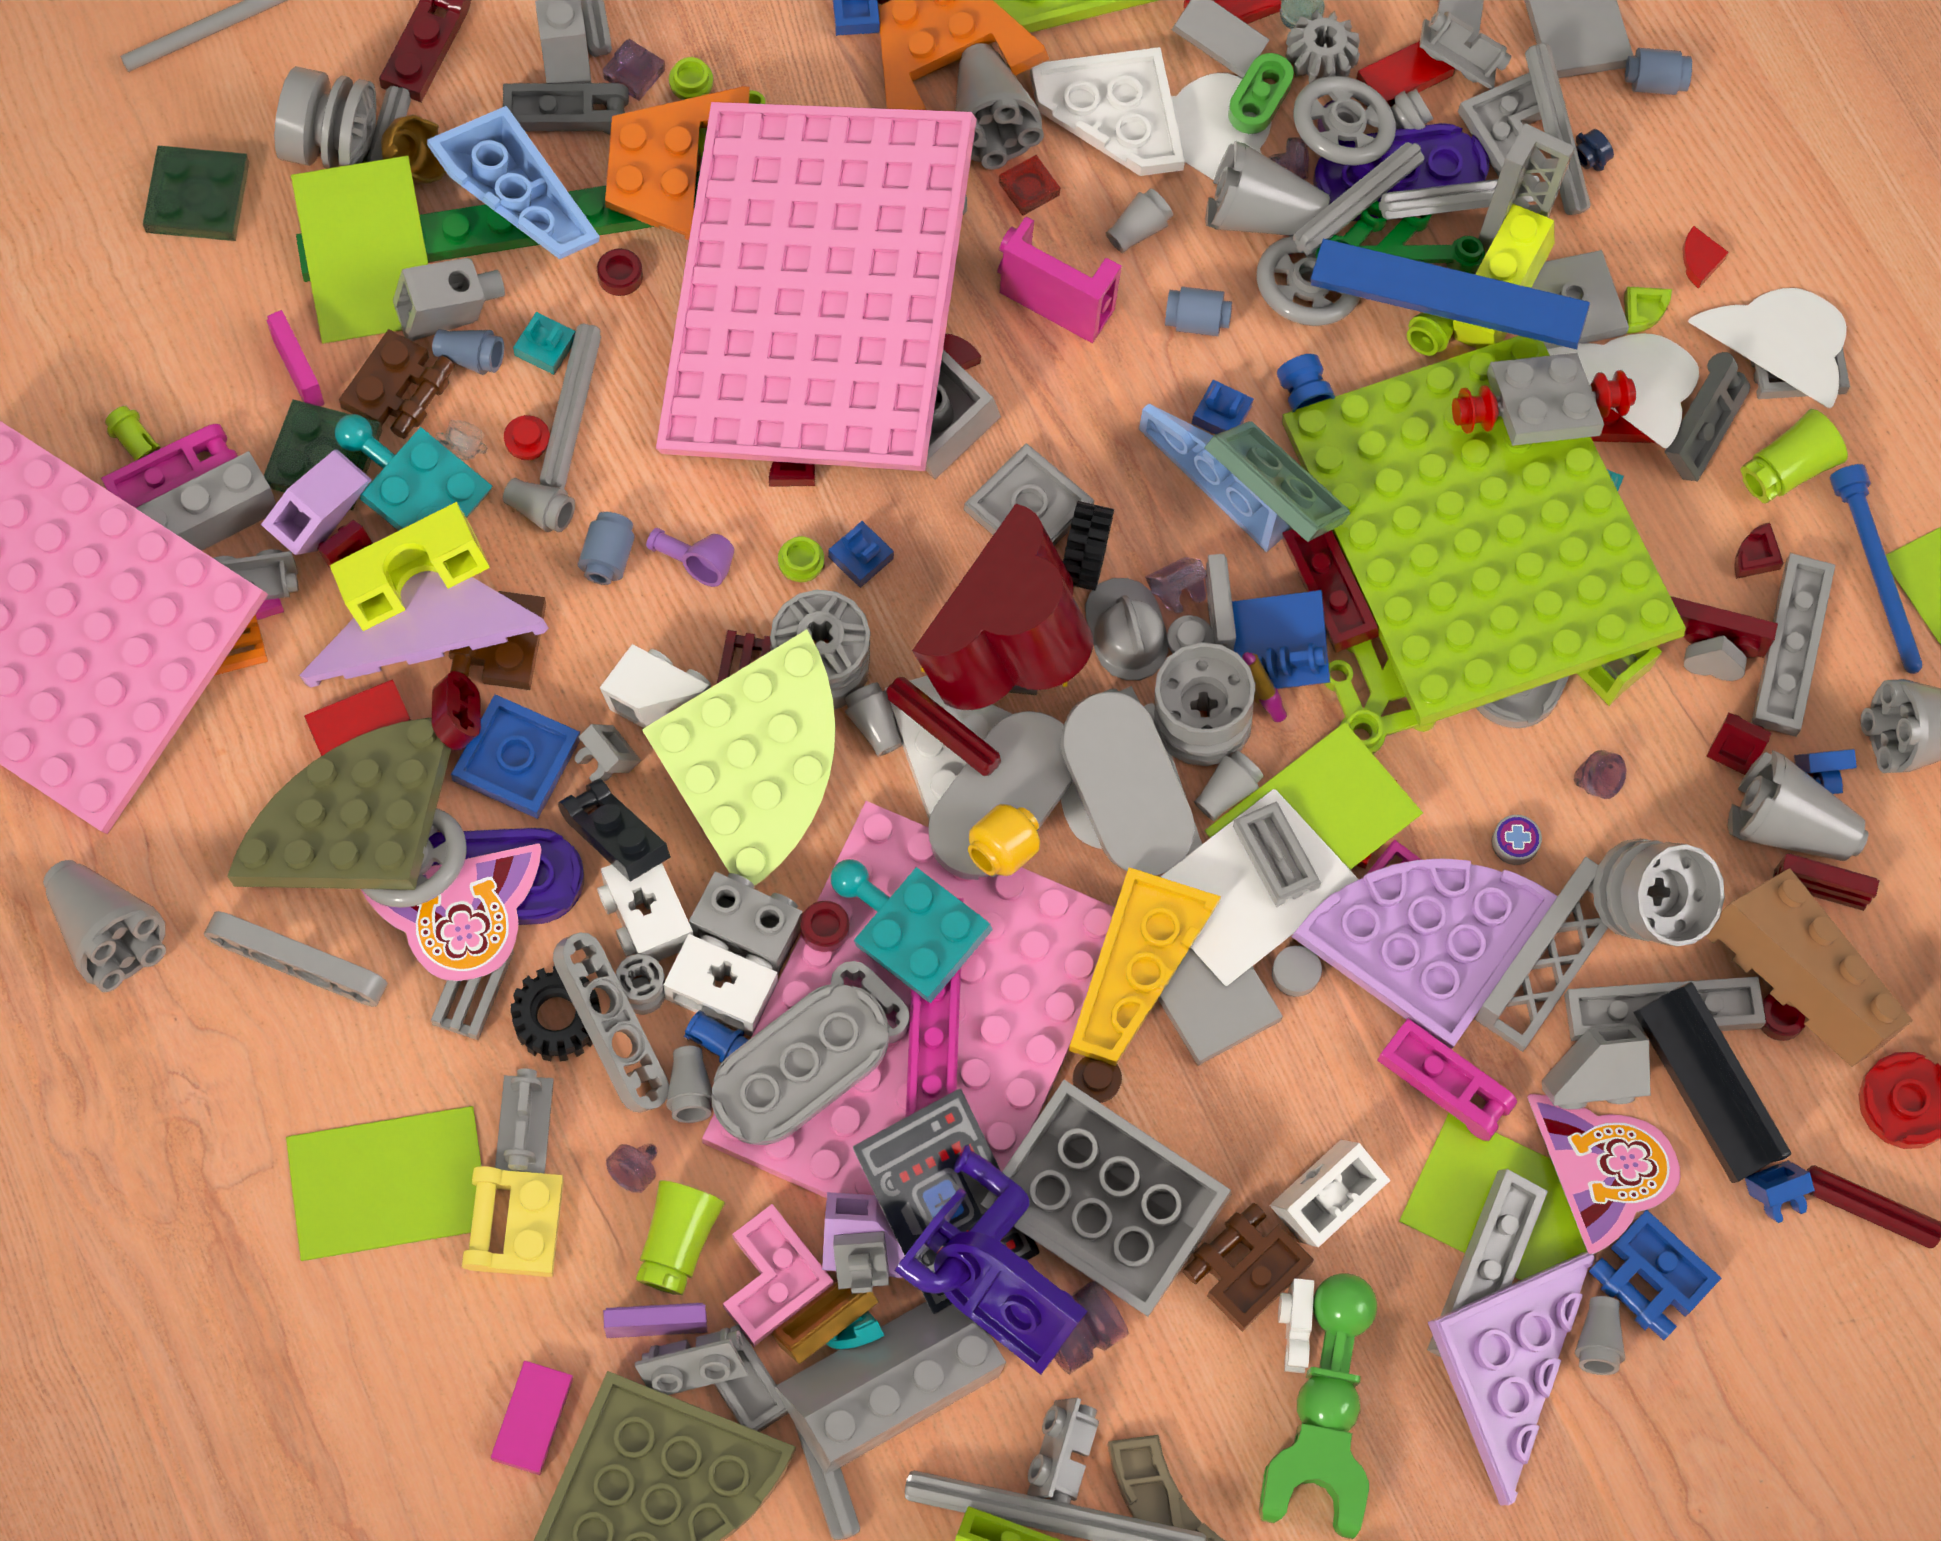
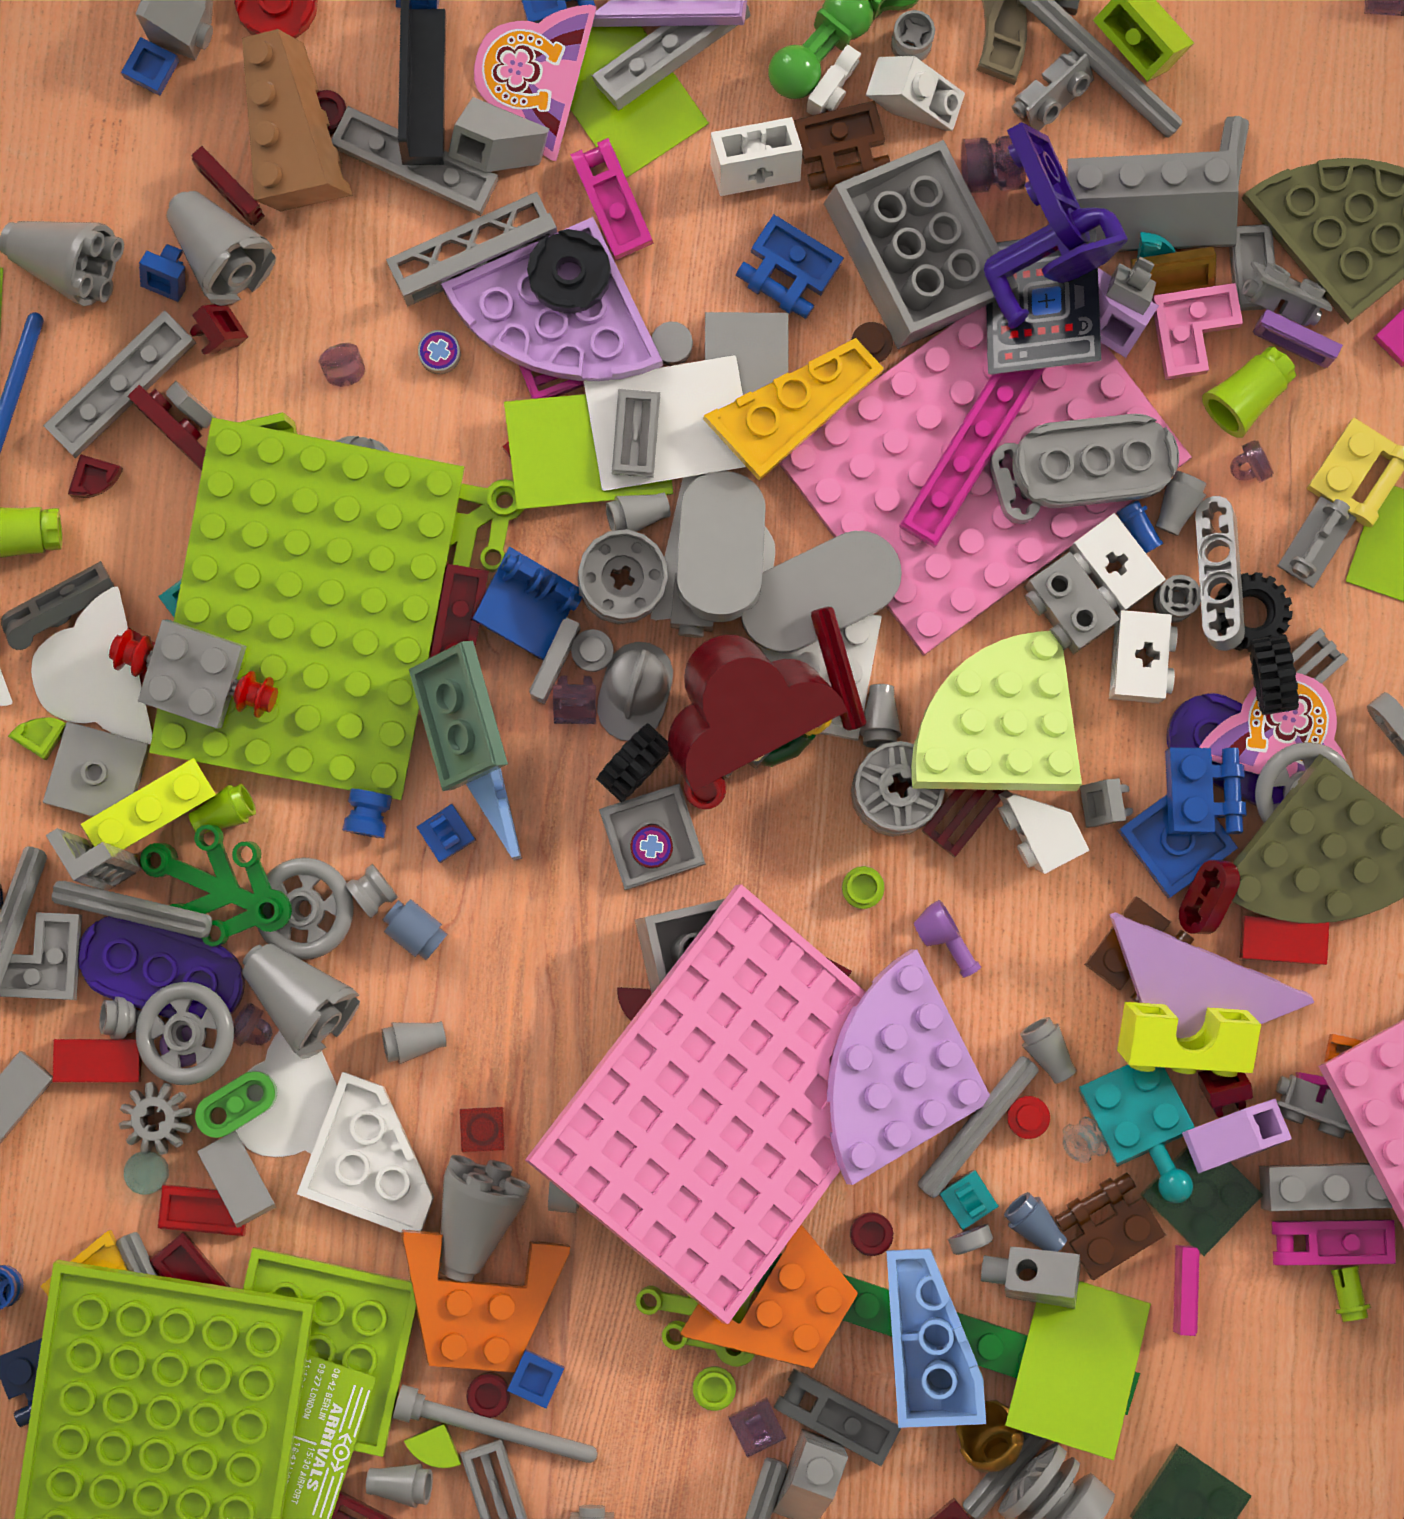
camera: 150 degrees left, 15 degrees up
(502, 940) = (1274, 674): none -> black tyre
(523, 305) = (970, 1239): none -> light grey tile
(527, 797) = (1191, 791): none -> blue plate
(606, 548) = (1016, 978): sand blue brick -> none
(614, 830) = (1137, 725): black plate -> none
(674, 403) = (897, 1071): none -> lavender plate
(825, 926) = (1015, 562): dark red tile -> none
(861, 554) = (811, 867): blue tile -> none
(917, 932) = (951, 511): teal plate -> none
(1004, 840) = (849, 540): yellow head -> none
(1024, 485) = (651, 846): none -> tile
(1054, 287) = (508, 970): dark pink panel -> none
(1206, 1362) = (915, 92): none -> white slope
(1224, 1123) = (795, 255): none -> blue plate
(1250, 1414) = (914, 28): none -> light grey wheel
(1258, 322) = (371, 891): none -> light grey wheel
(1265, 691) = (564, 566): piece -> none
(1358, 198) = (221, 950): light grey axle -> none
(1425, 993) = (573, 294): none -> black tile
(1446, 40) = (41, 1045): light grey hinge -> none
(1450, 293) = (210, 807): blue tile -> none
(1658, 891) = (369, 232): light grey wheel -> none

